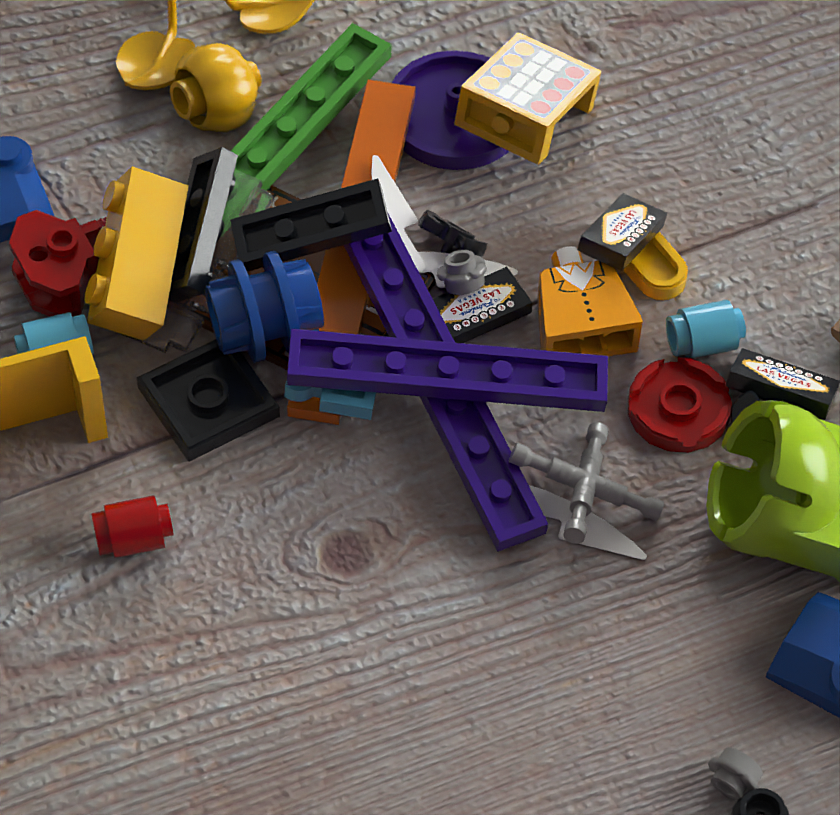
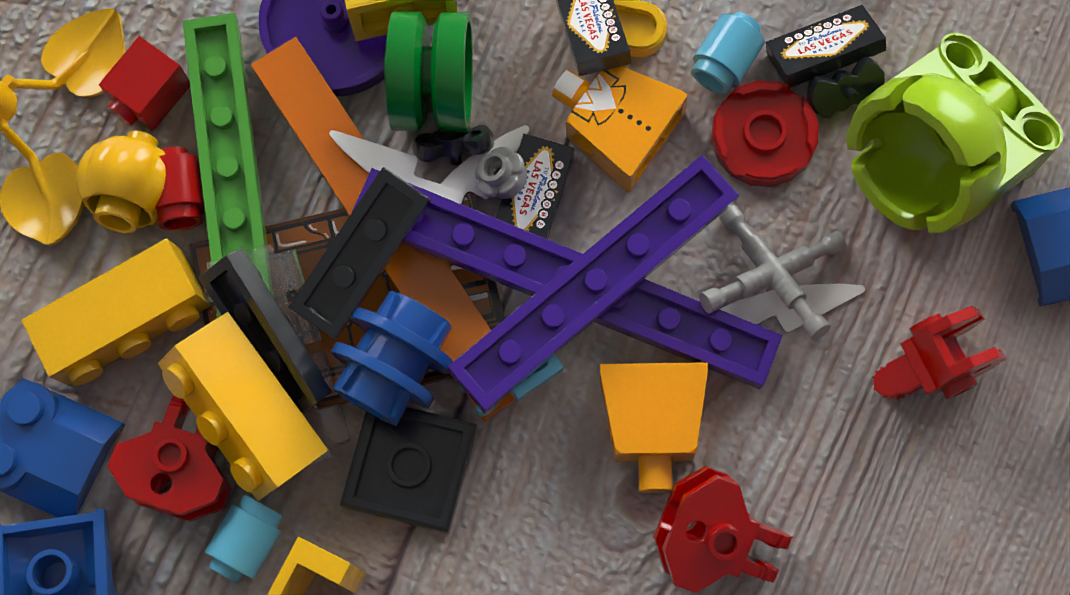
camera: 35 degrees left, 20 degrees up
(103, 144) = (116, 314): none -> yellow brick
(239, 116) = (182, 193): none -> red brick
(286, 43) = (144, 85): none -> red brick
(363, 598) = (718, 533): none -> red hinge
(404, 498) = (654, 416): none -> light orange torso
(479, 169) = (423, 71): none -> green wheel
(645, 623) = (936, 360): none -> red hinge

